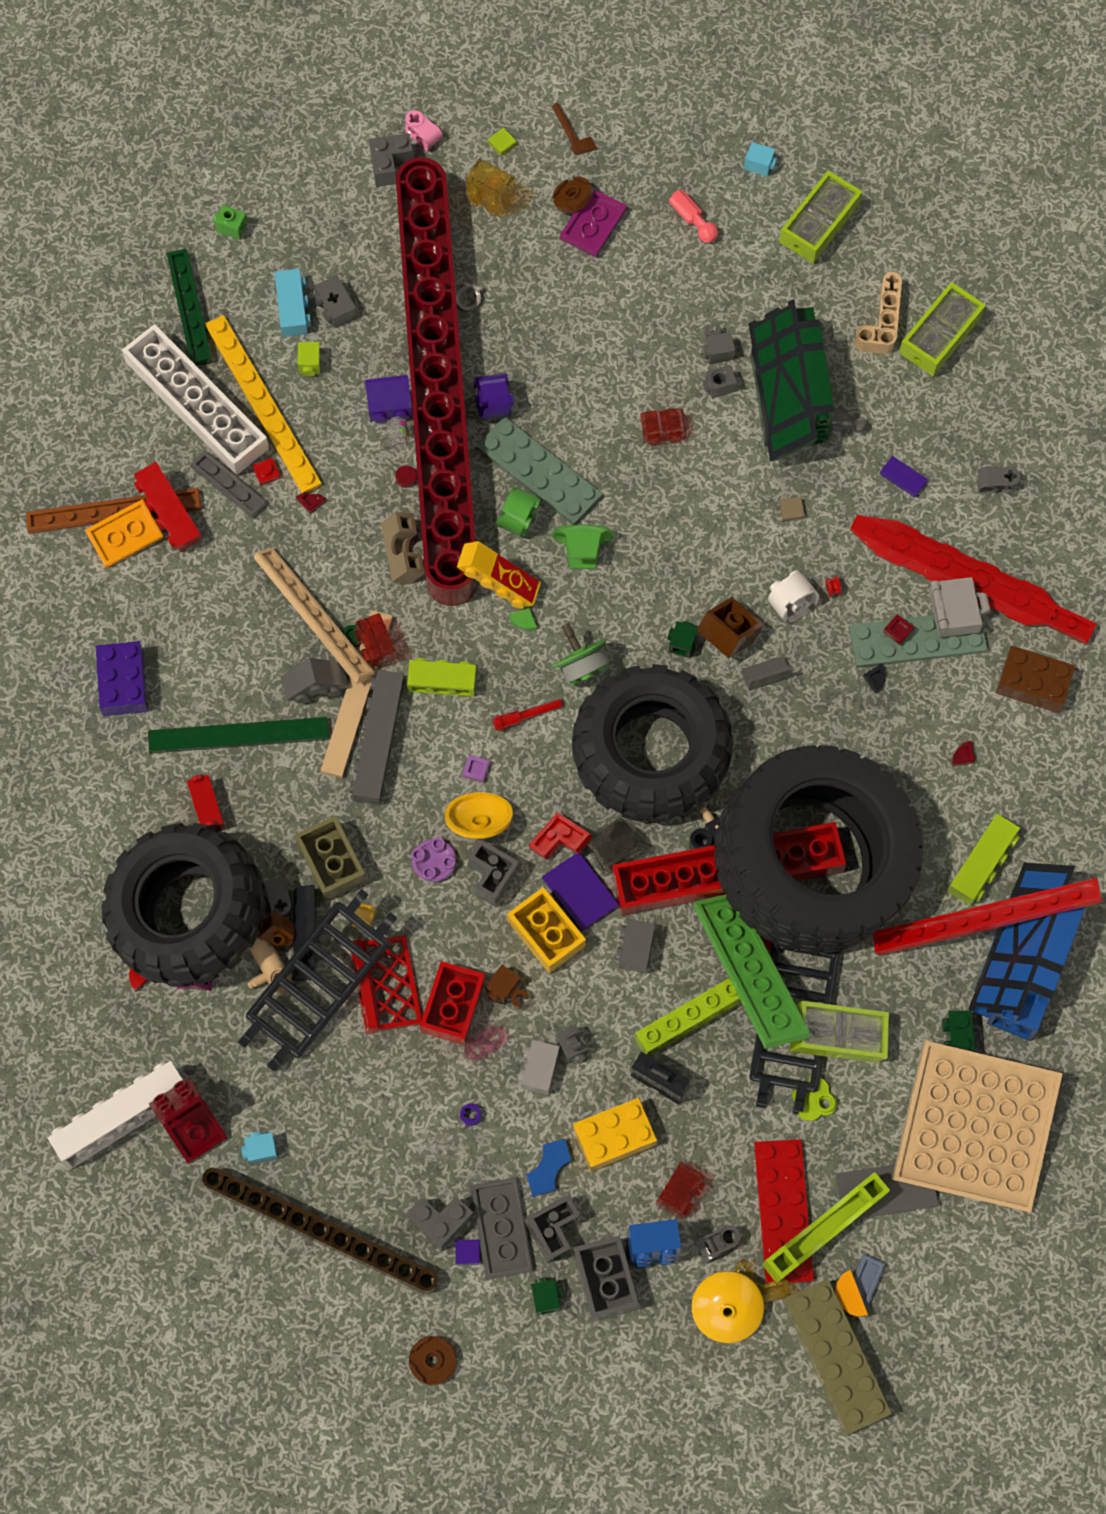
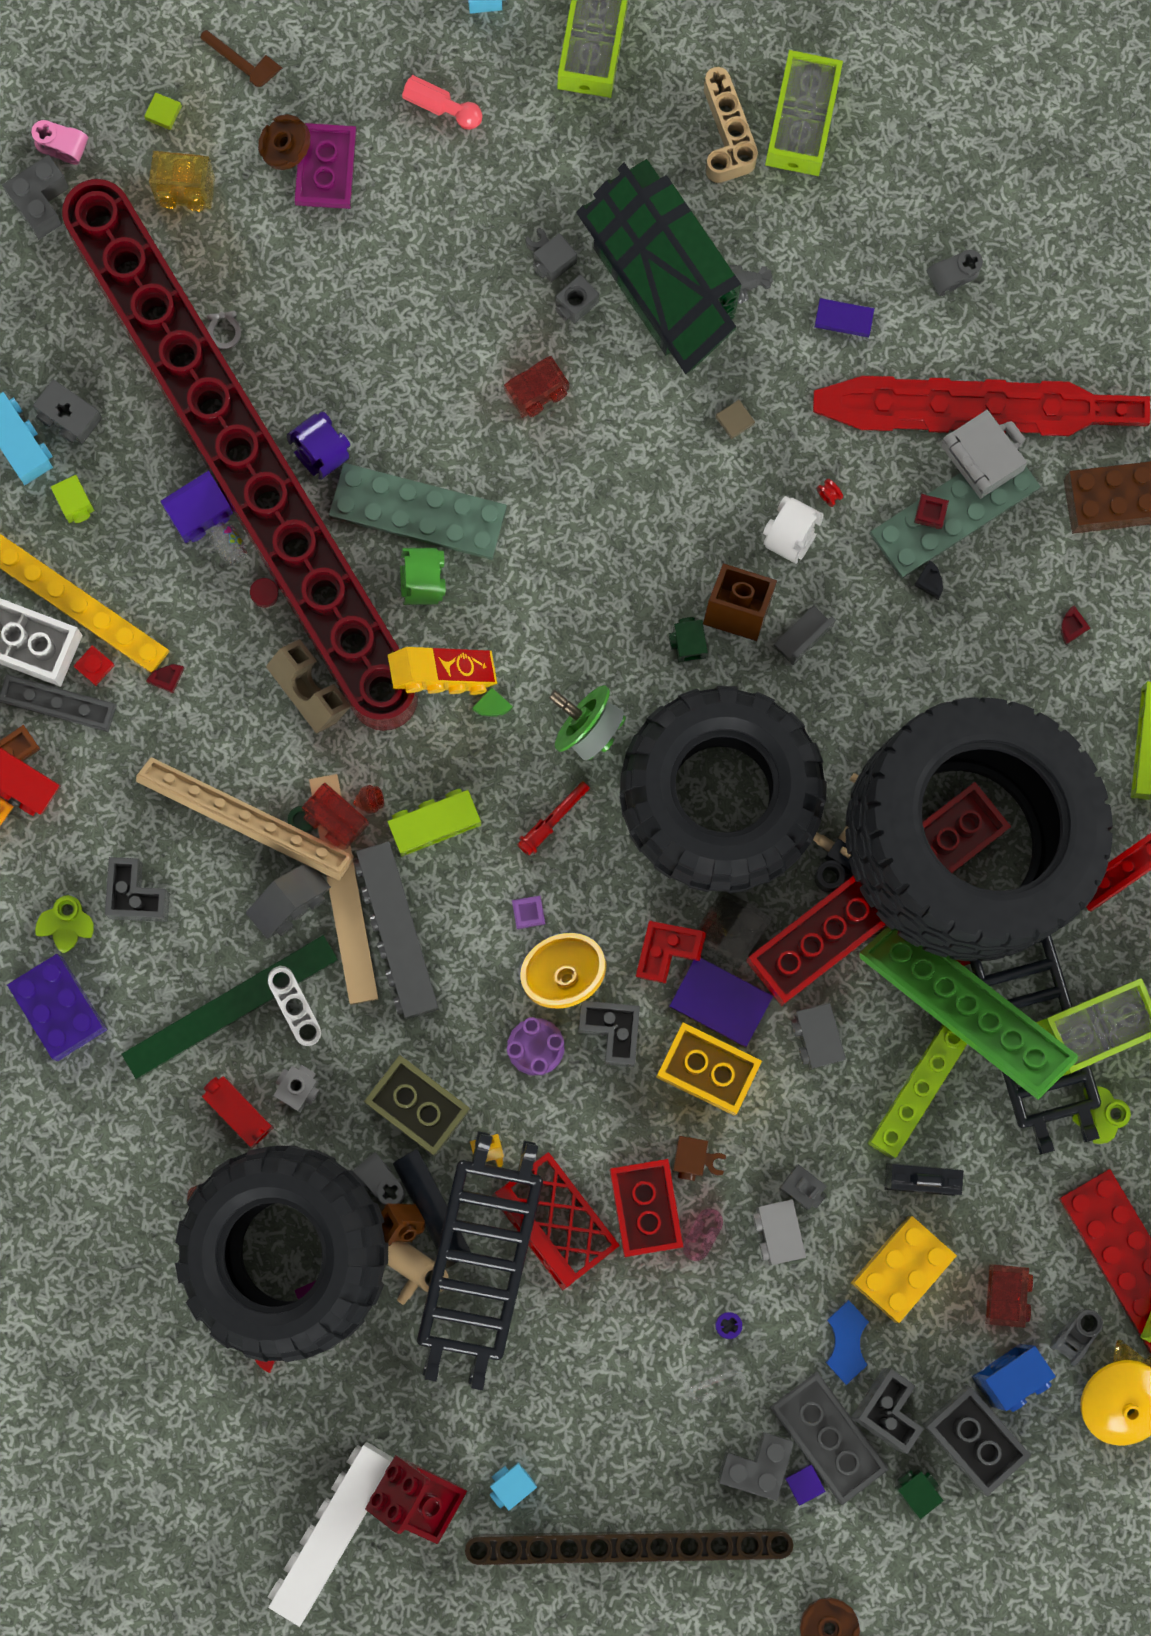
camera: 30 degrees left, 10 degrees up
(154, 631) = (63, 927): none -> lime plate
(208, 630) = (127, 899): none -> dark grey brick
(254, 807) = (286, 1083): none -> light grey brick
(281, 741) = (298, 1019): none -> white beam
(406, 642) = (369, 799): none -> clear red plate
(582, 543) = (516, 579): bright green piece -> none

